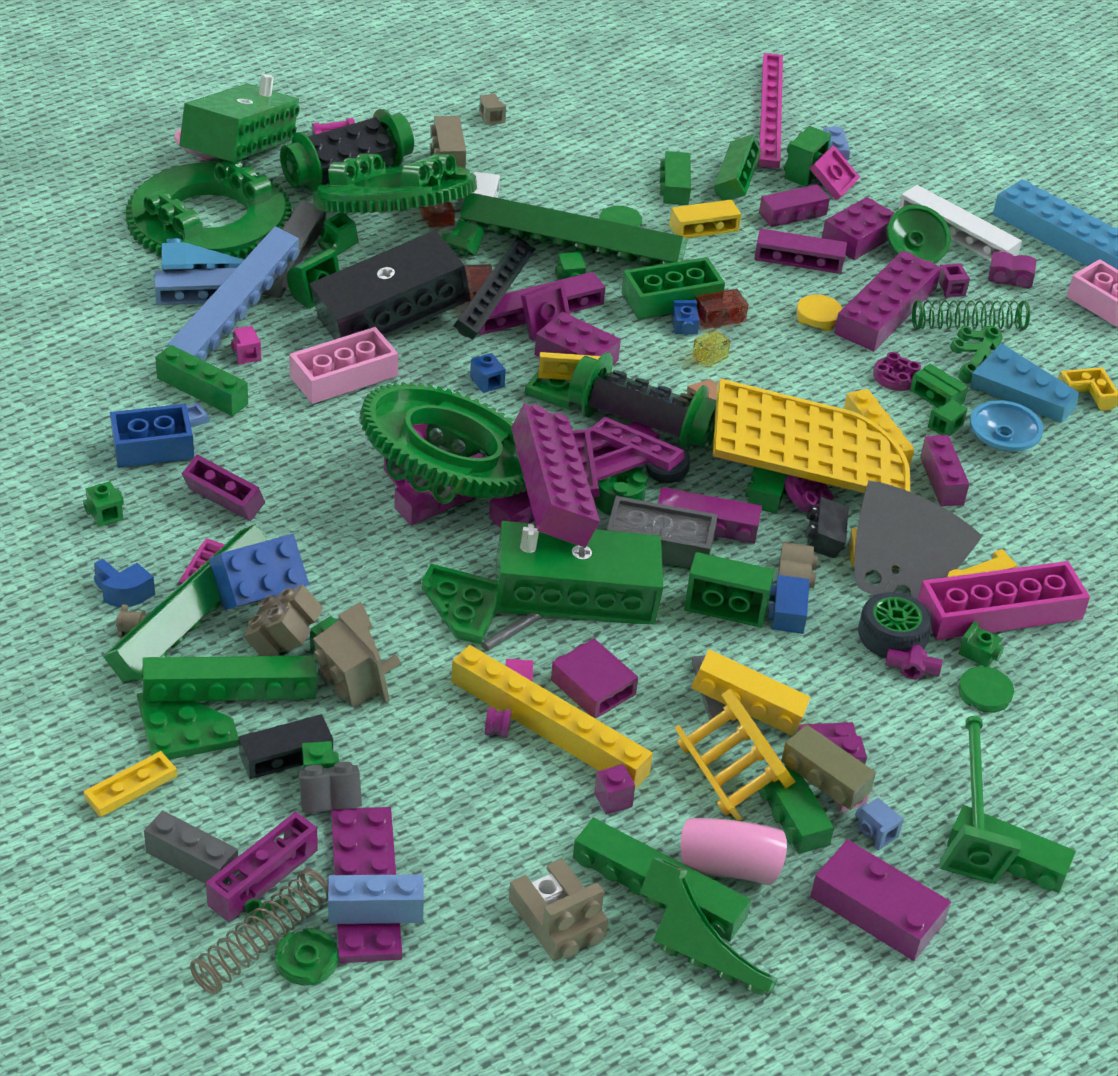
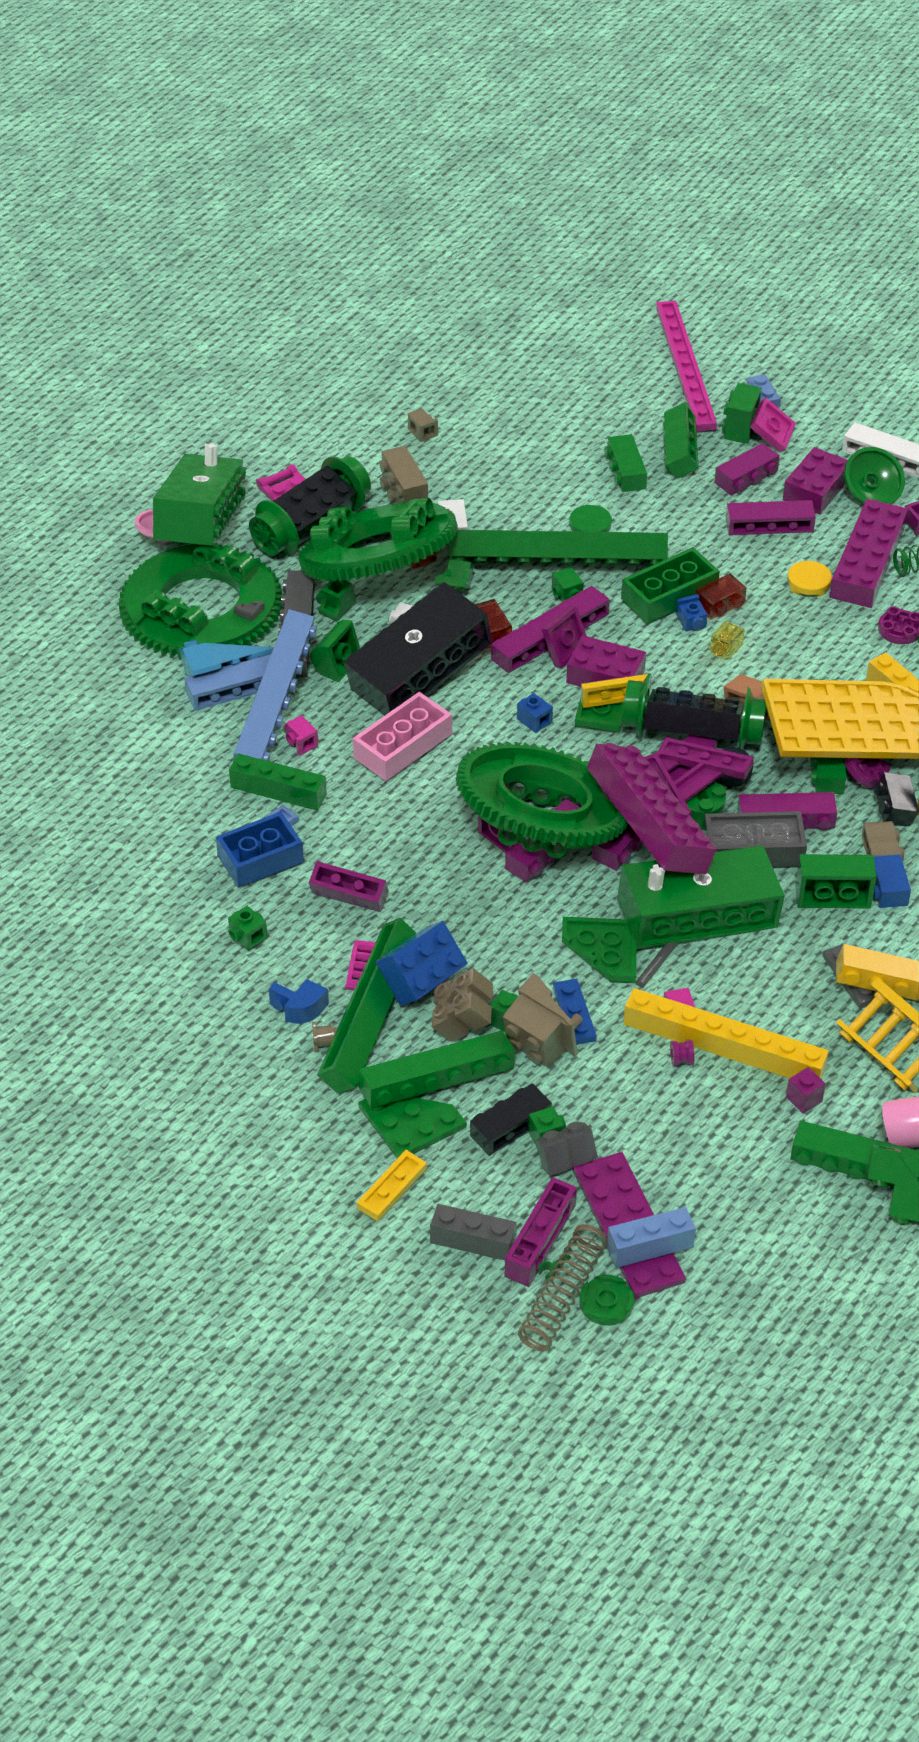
camera: 10 degrees left, 5 degrees up
(247, 228) = (250, 610): none -> dark grey tile
(406, 647) = (572, 1001): none -> blue plate
(494, 288) = (512, 625): black plate -> none
(560, 910) = (807, 1211): dark tan brick -> none
(594, 678) = (747, 991): magenta brick -> none
(705, 219) = (670, 503): yellow brick -> none

